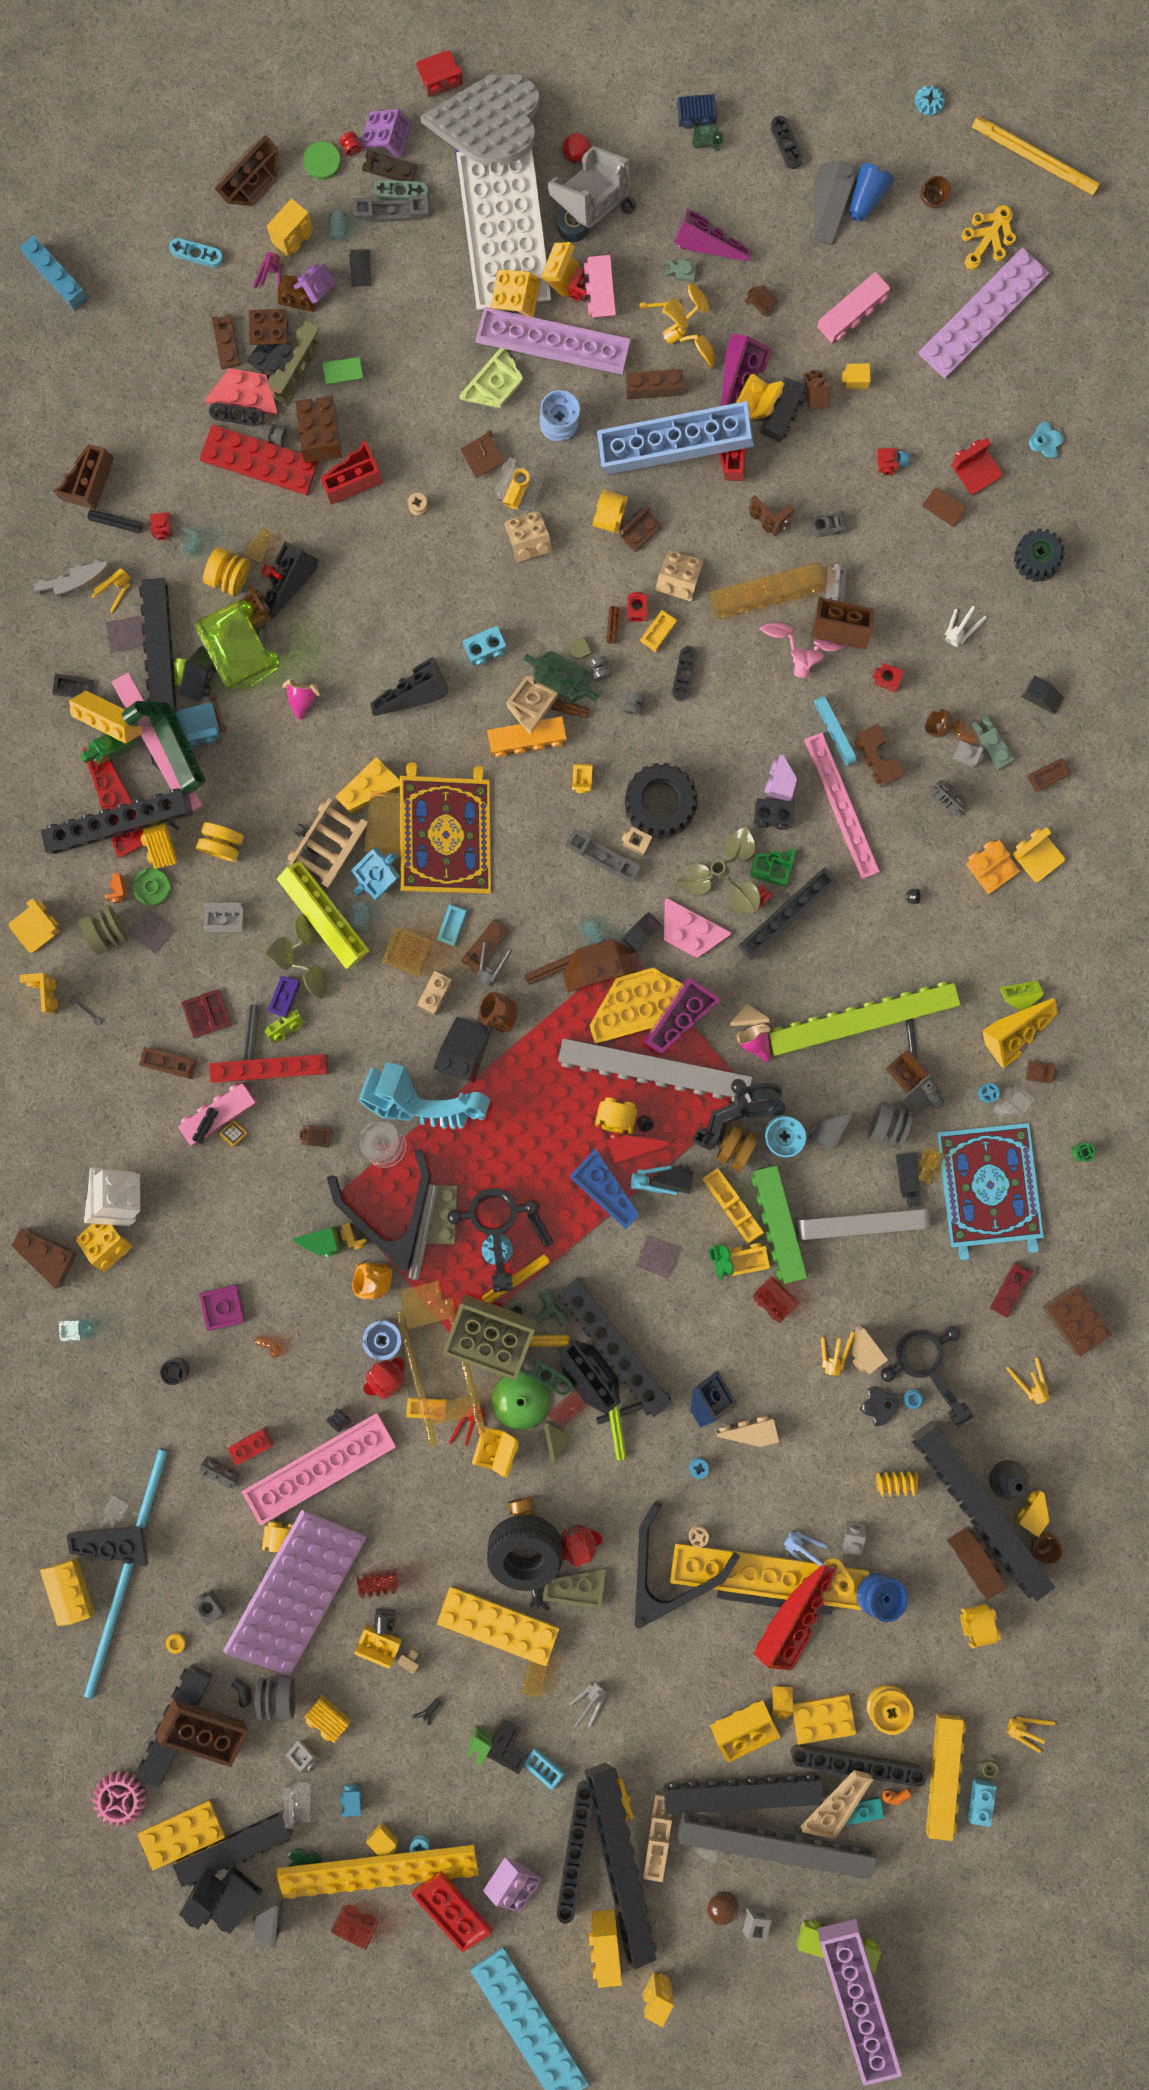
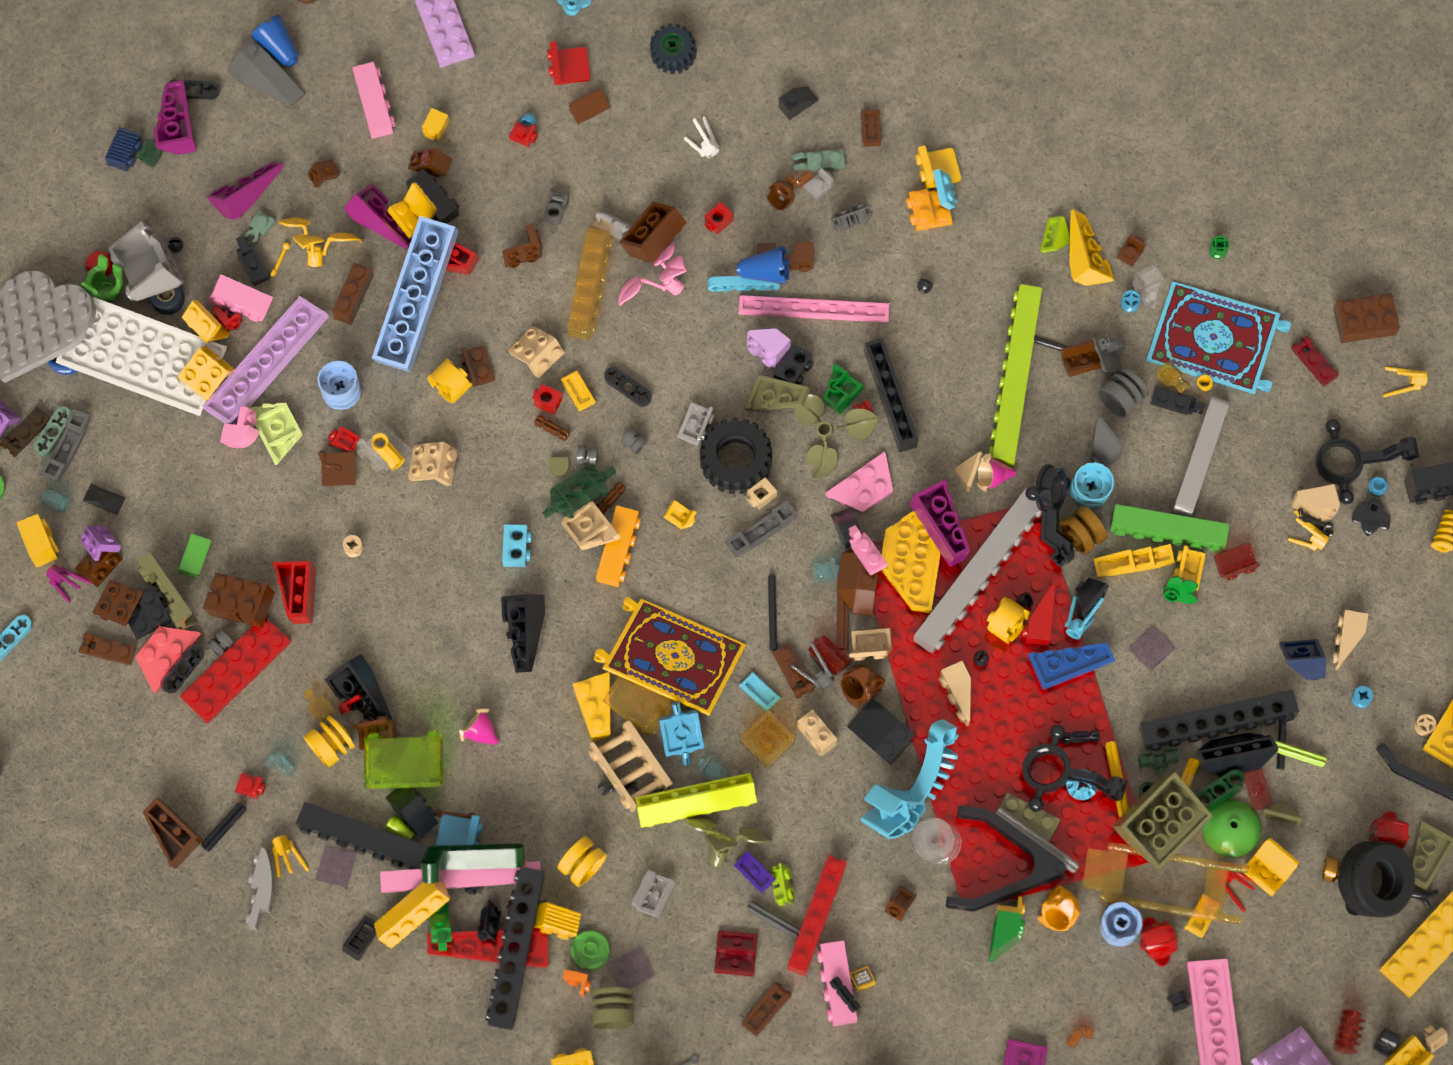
camera: 65 degrees left, 15 degrees down
(134, 789) = (489, 922): none -> black hinge
(475, 353) = (243, 433): none -> bright pink brick
(512, 446) = (343, 439): none -> red bracket
(513, 972) = (834, 658): none -> clear red bracket
(531, 902) = (772, 613): none -> black bar
(535, 1100) = (958, 684): none -> tan slope
(537, 1004) = (871, 643): none -> tan bracket
(553, 156) = (101, 286): none -> bright green hair
(573, 1112) = (984, 661): none -> black hinge
(618, 960) = (866, 551): none -> bright pink hinge
(643, 280) = (252, 262): none -> black hinge
(676, 750) = (695, 423): none -> light grey bracket
(738, 809) = (776, 394): none -> olive wing
(741, 143) = (174, 124): none -> magenta wedge
(849, 1369) = (1316, 522): none -> black piece
(856, 742) = (766, 266): none -> blue cone
(943, 1196) = (1206, 379): none -> yellow hinge
(1016, 871) = (945, 189): none -> medium azure hinge

